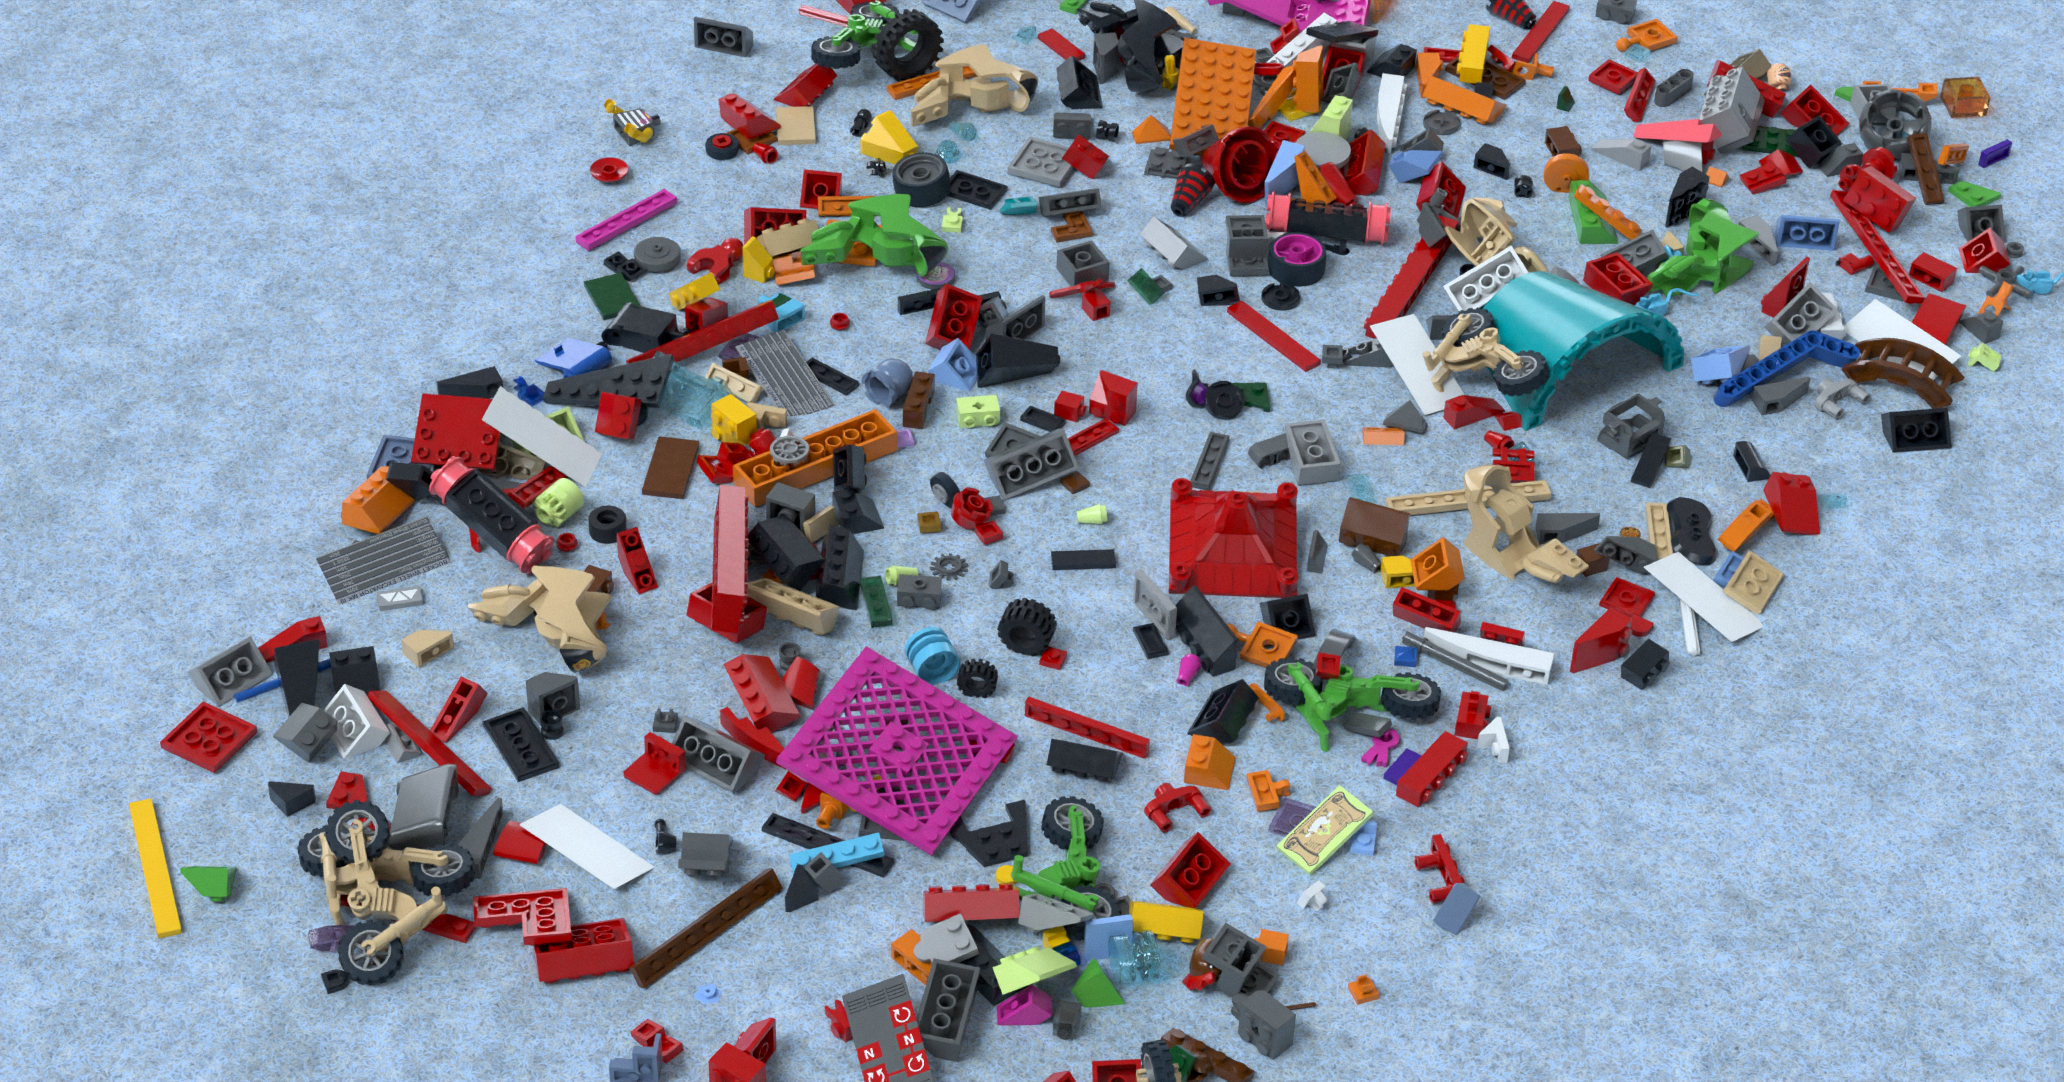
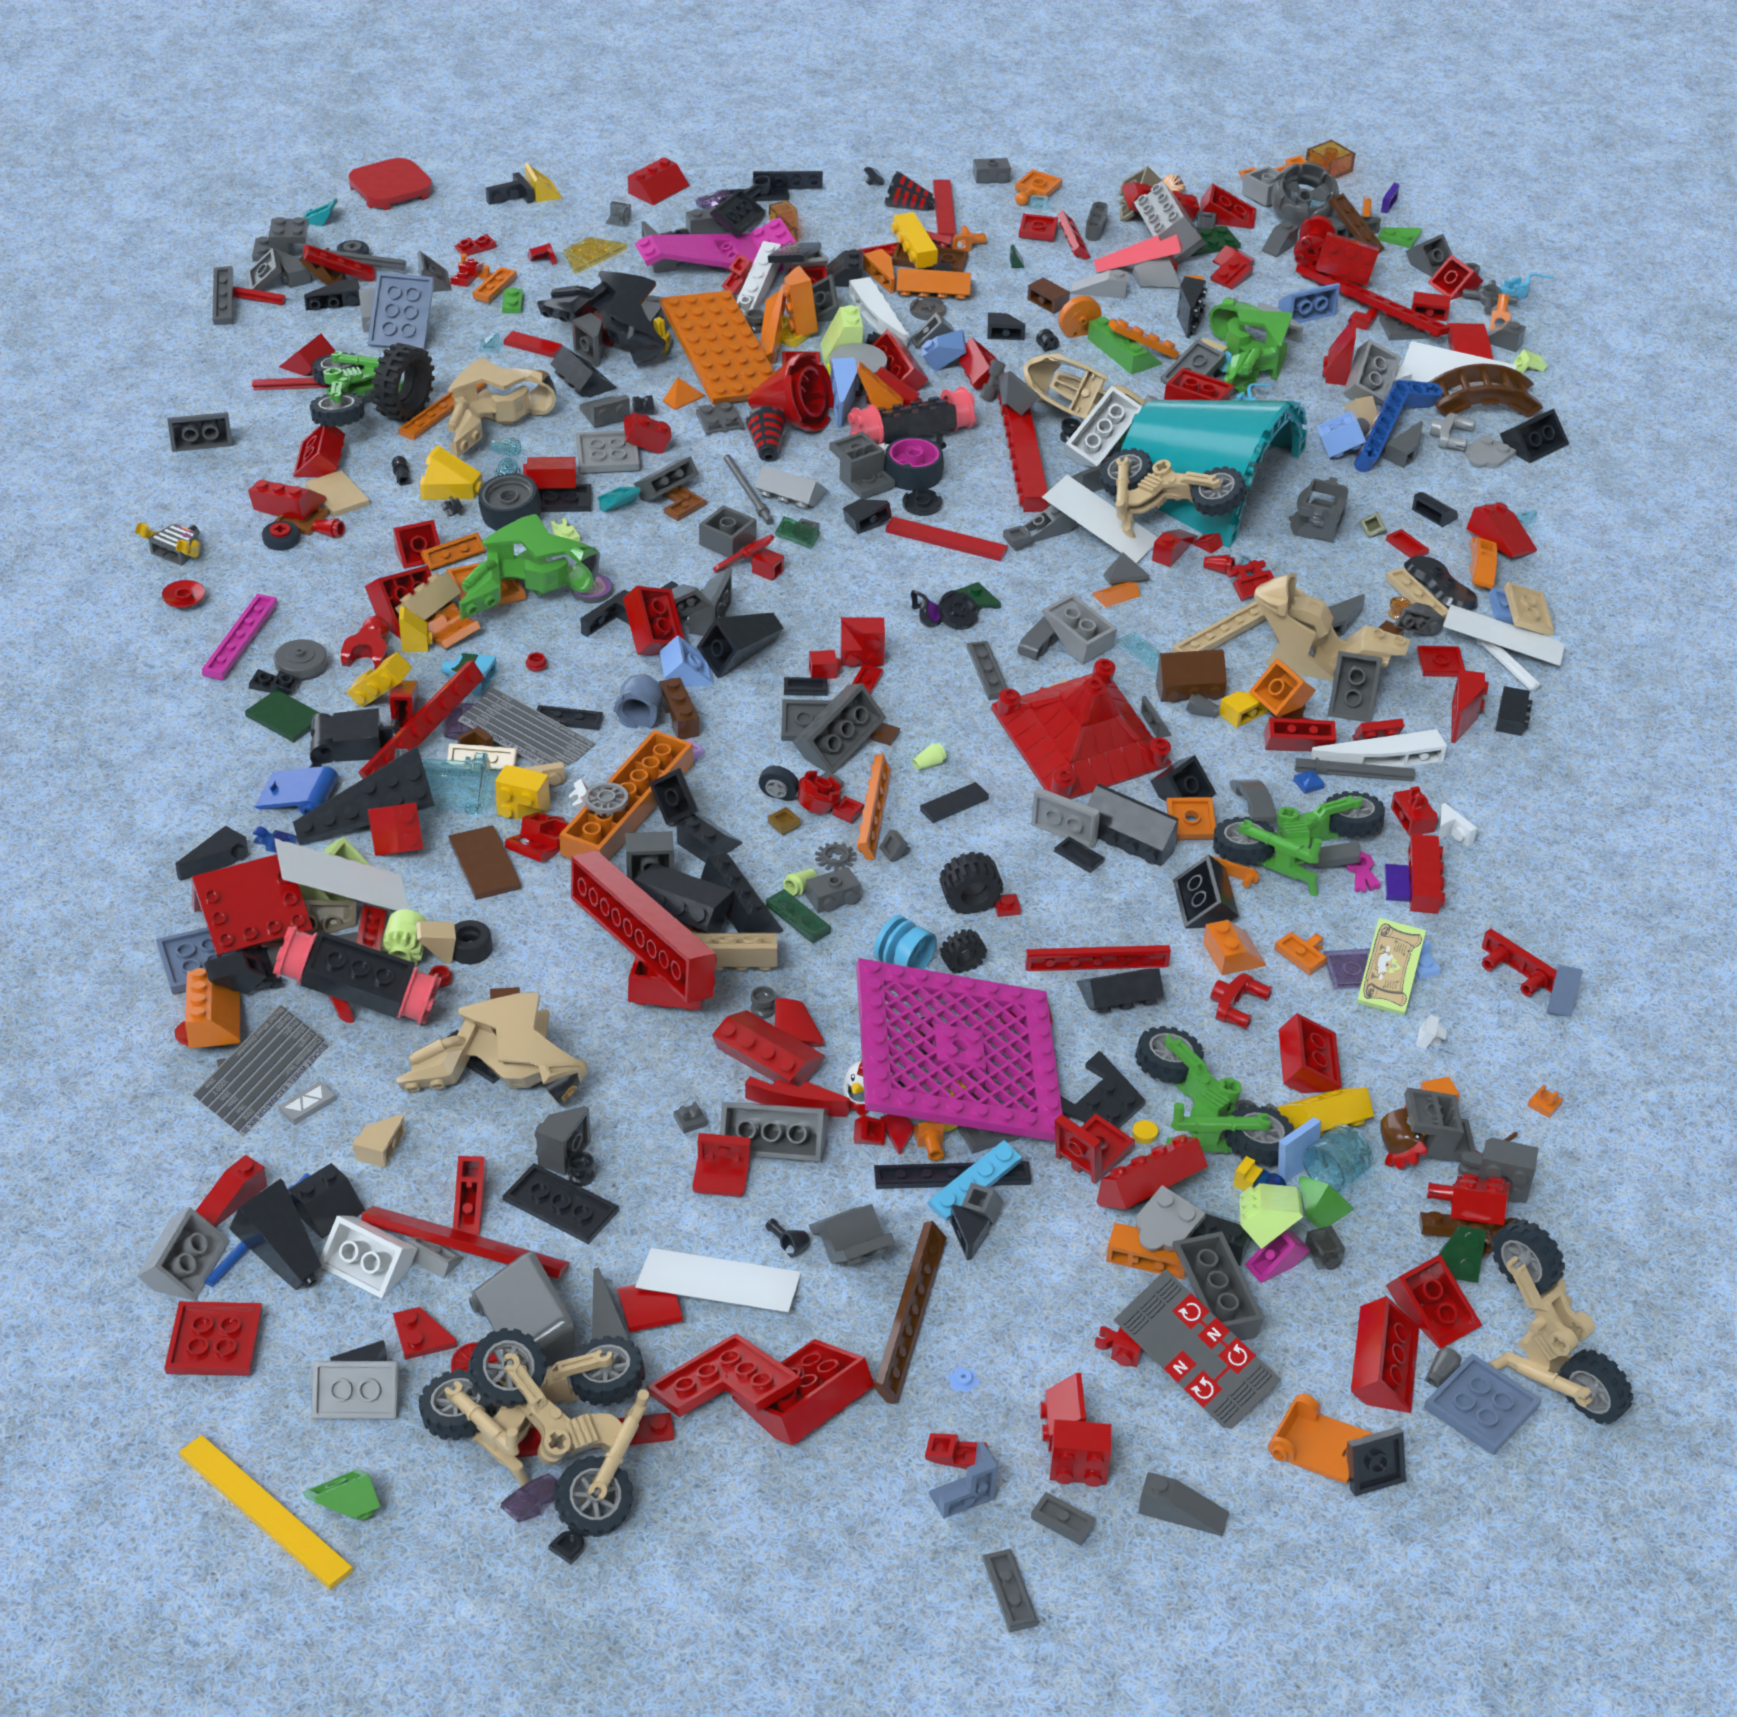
camera: 30 degrees left, 0 degrees up
(270, 811) = (354, 1390): none -> light grey tile
(307, 731) = (327, 1284): dark grey slope -> none
(579, 511) = (438, 938): none -> tan slope
(635, 561) = (533, 967): red slope -> none
(761, 441) = (563, 803): red head -> none
(819, 523) = (685, 857): tan tile -> none
(939, 867) = (1084, 1148): none -> red bracket
(977, 411) = (742, 699): yellowish green brick -> none
(978, 164) = (551, 471): none -> red brick
(1010, 538) = (874, 807): none -> orange plate
(1043, 912) = (1236, 1150): light grey slope -> none
(1134, 255) = (761, 508): none -> dark grey bar
(1188, 669) = (1138, 866): dark pink cone -> none
(1196, 141) = (743, 387): dark grey panel -> none
(1219, 1034) = (1475, 1198): none -> red brick
(1268, 68) = (751, 304): red tile -> none
(1327, 666) = (1276, 812): red tile -> none
(1513, 588) = (1354, 686): none -> dark grey slope
(1651, 460) = (1357, 535): black tile -> none
(1695, 485) = (1407, 544): none -> red tile
(1784, 119) = (1206, 220): none -> black tile
(1813, 141) = (1251, 230): black brick -> none
(1844, 92) = (1232, 185): bright green tile -> none
(1858, 429) = (1488, 453): none -> light grey plate

